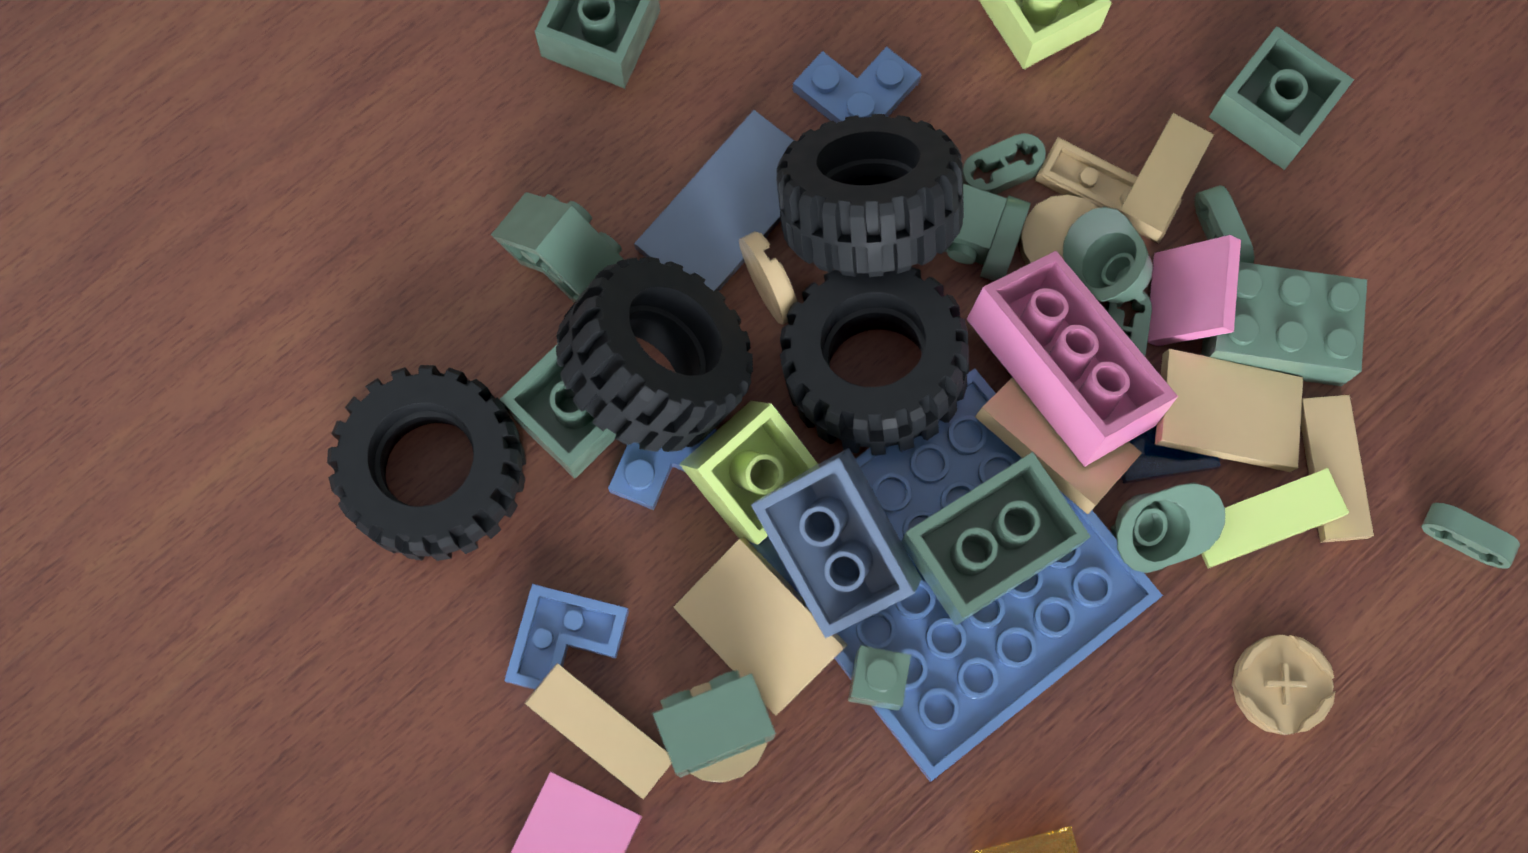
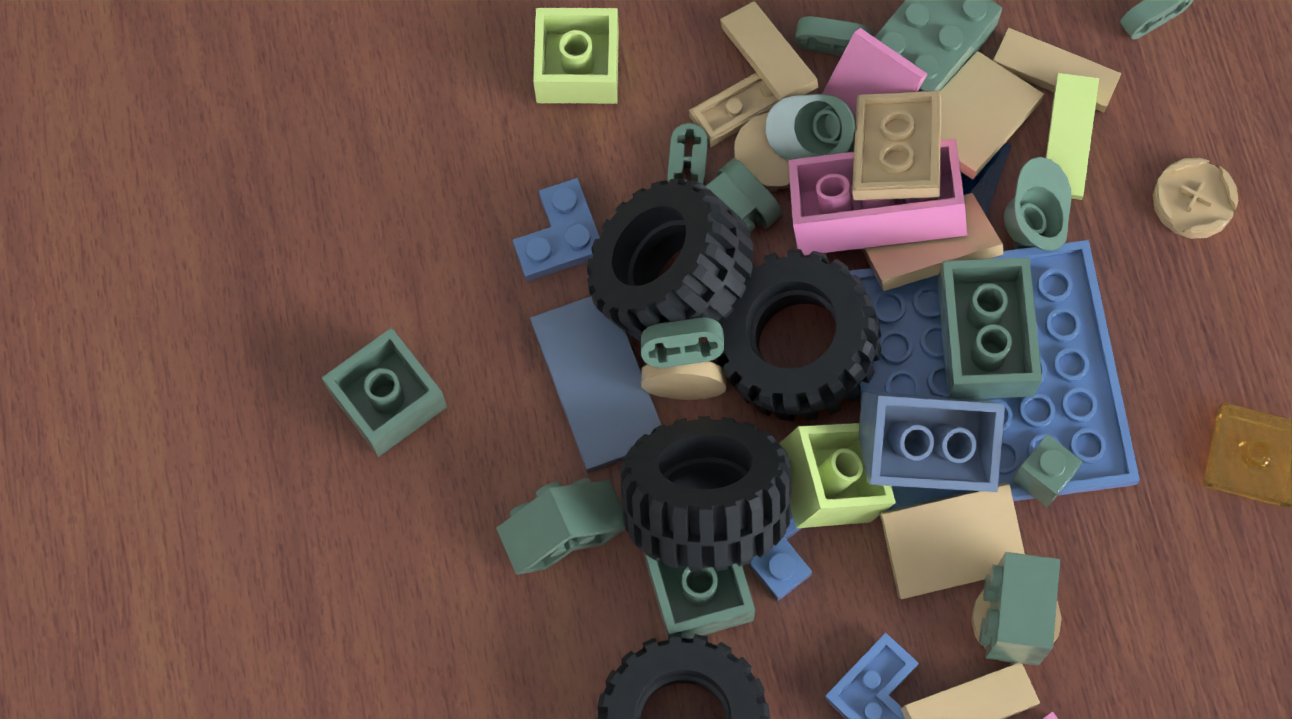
camera: 55 degrees left, 5 degrees down
(788, 244) = (682, 342): none -> sand green beam
(1132, 343) = (897, 146): none -> tan tile

